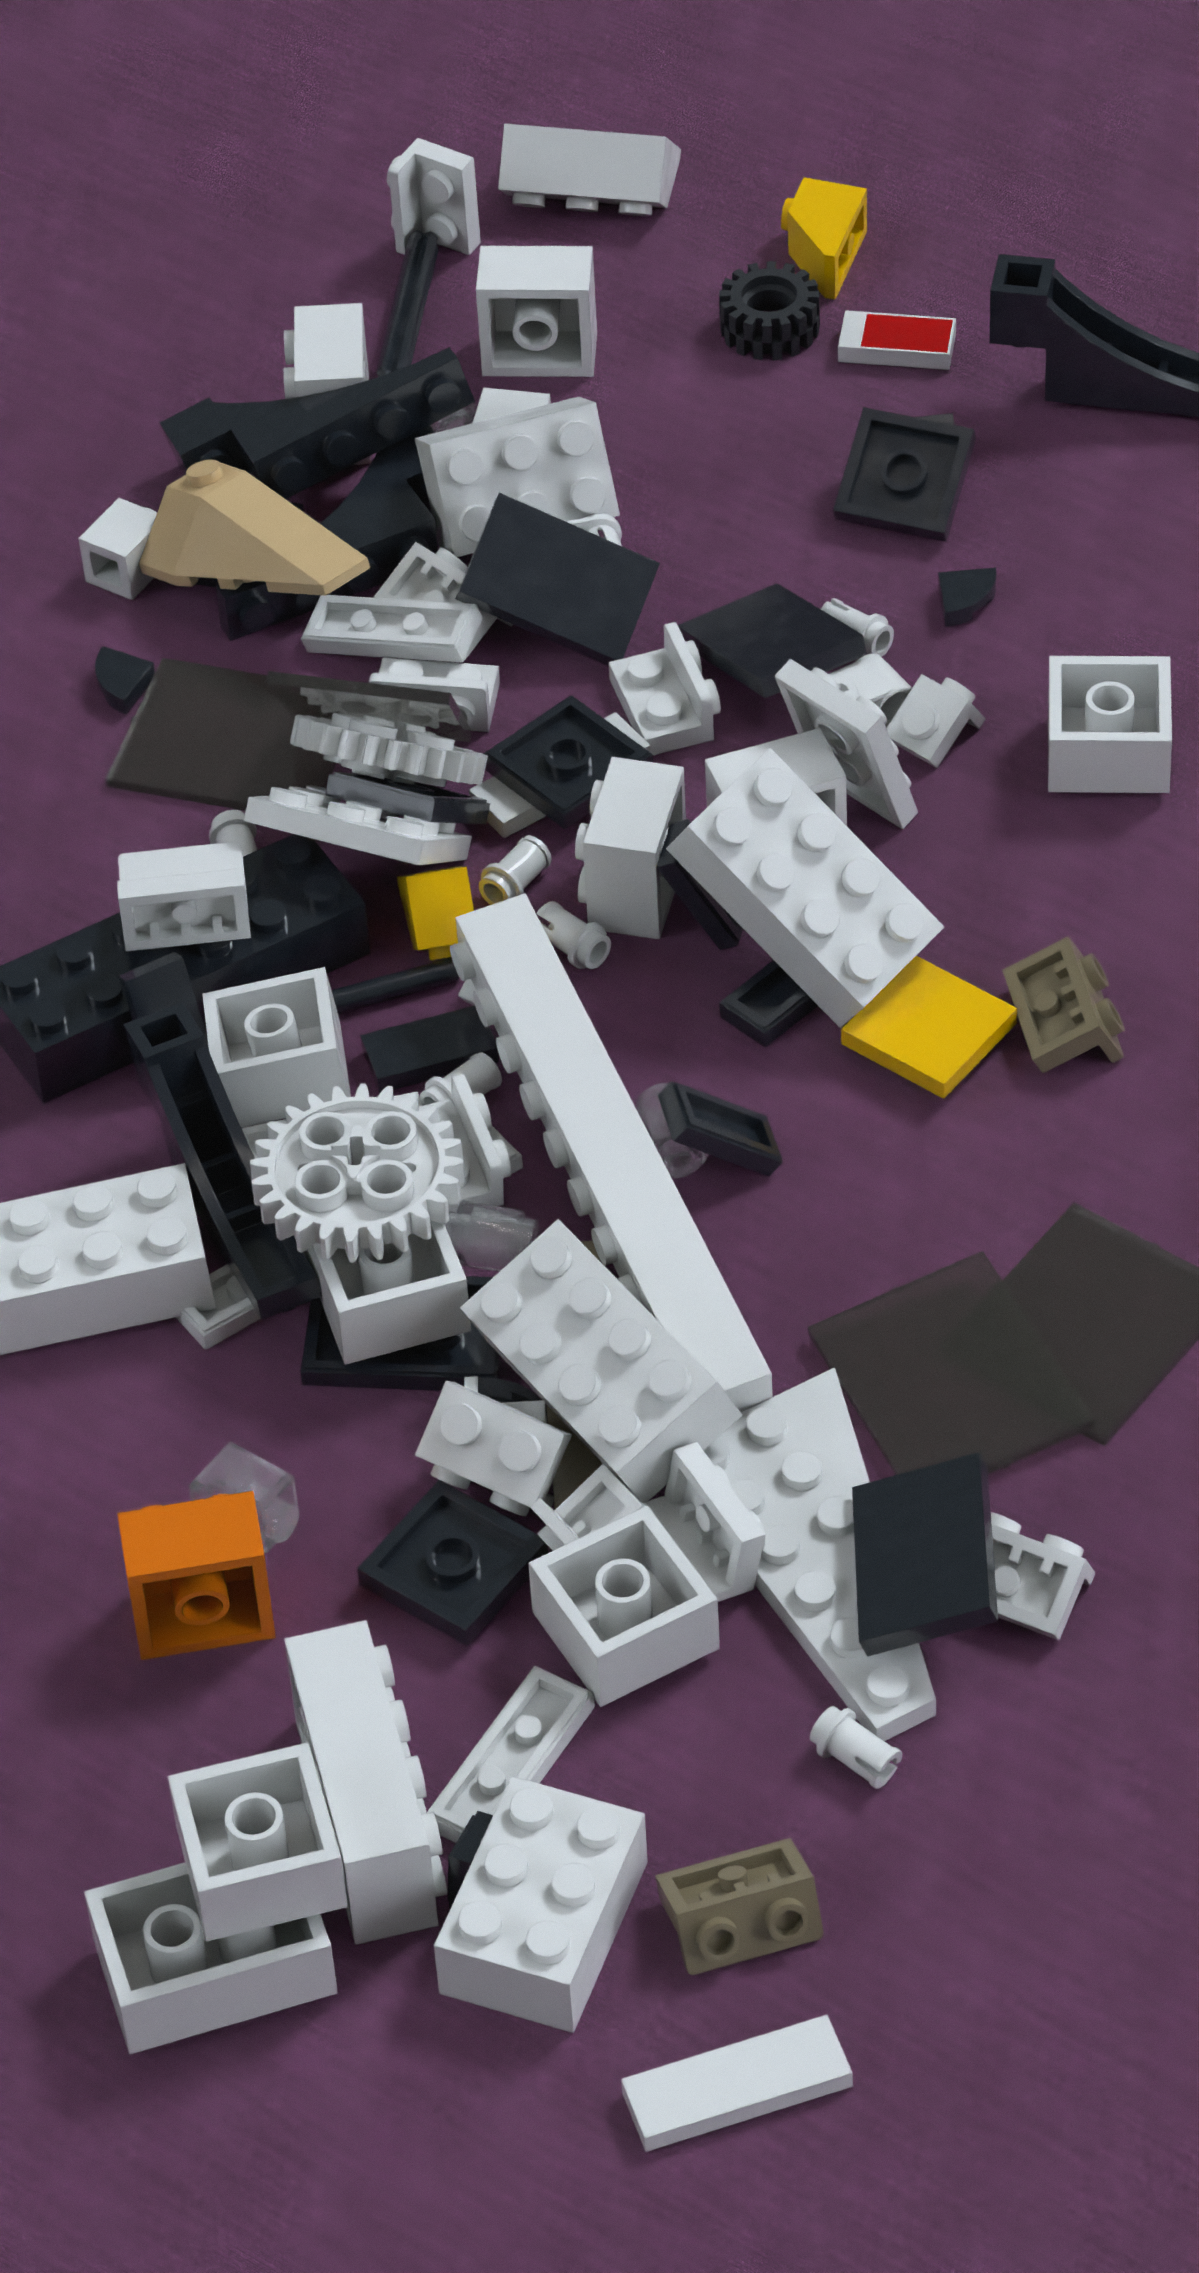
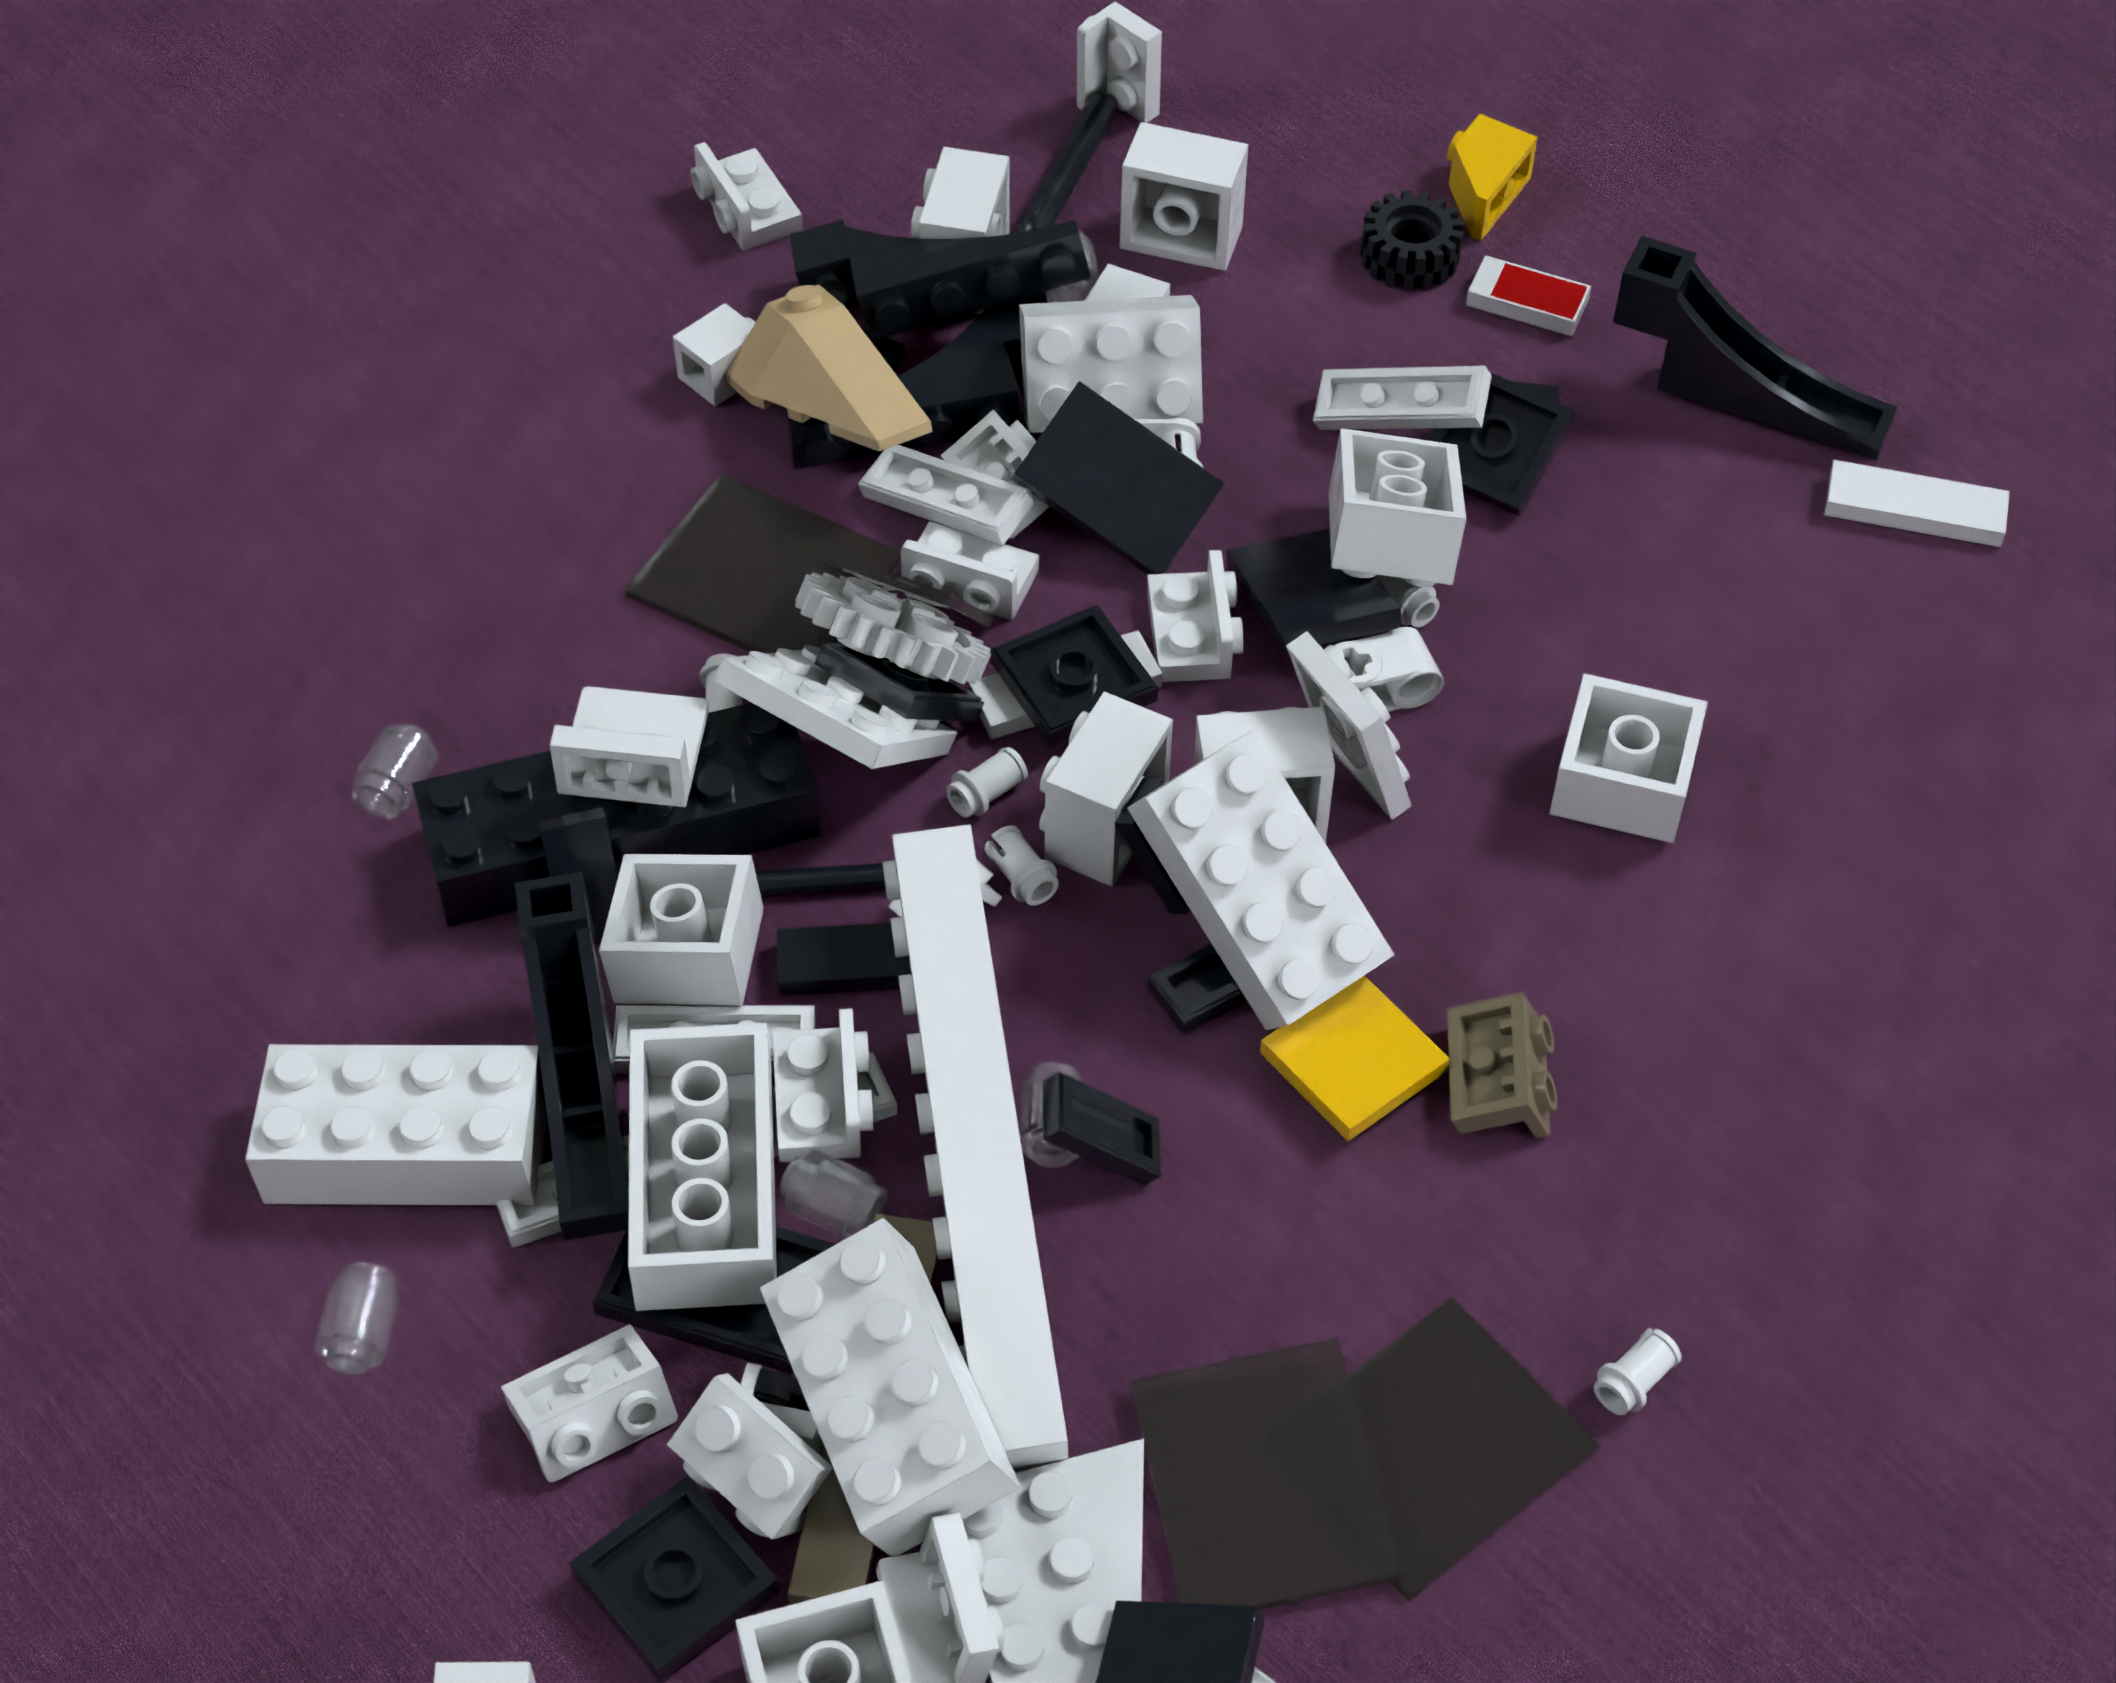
camera: 10 degrees right, 5 degrees up
(91, 1426) = (357, 1318): none -> clear brick
(94, 400) = (745, 197): none -> white bracket
(122, 677) = (675, 486): black tile -> none
(196, 1575) = (392, 1534): orange brick -> none
(274, 1490) = (483, 1446): clear brick -> none
(334, 1445) = (591, 1402): none -> white bracket
(357, 1172) = (694, 1112): white gear -> none
(430, 907) = (894, 802): yellow slope -> none
(479, 1071) = (870, 1007): white pin -> none
(587, 168) = (1277, 63): white slope -> none
(591, 1506) = (822, 1565): white bracket -> none
(805, 453) = (1402, 398): none -> white tile
(831, 549) = (1396, 508): none -> white brick
(933, 718) = (1452, 708): white bracket -> none
(965, 592) = (1523, 577): black tile -> none

